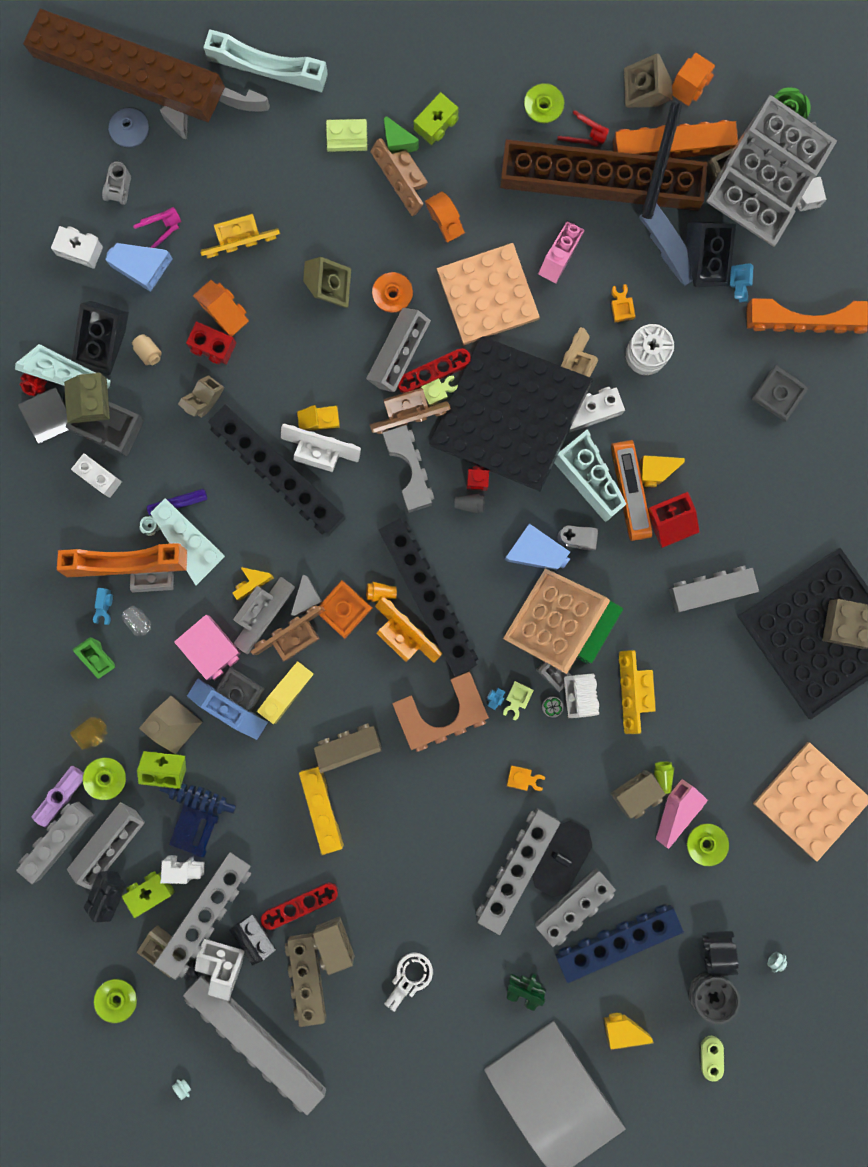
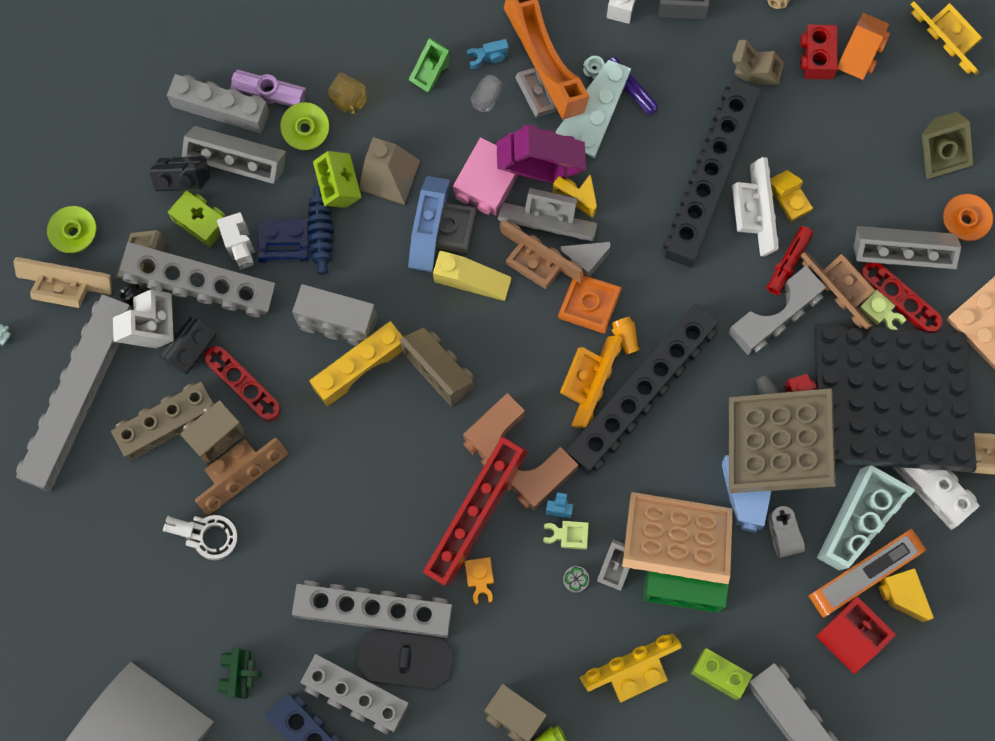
camera: 75 degrees right, 10 degrees down
(159, 1024) = (61, 283): none -> tan bracket
(210, 600) = (540, 154): none -> magenta piece
(276, 815) = (334, 315): none -> light grey brick
(368, 936) = (236, 471): none -> medium nougat bracket
(377, 448) = (785, 268): none -> red pin
(476, 764) = (475, 511): none -> red brick
(515, 512) = (781, 441): none -> dark tan plate
(581, 695) = (603, 605): white brick -> none
(664, 629) = (721, 674): none -> lime brick

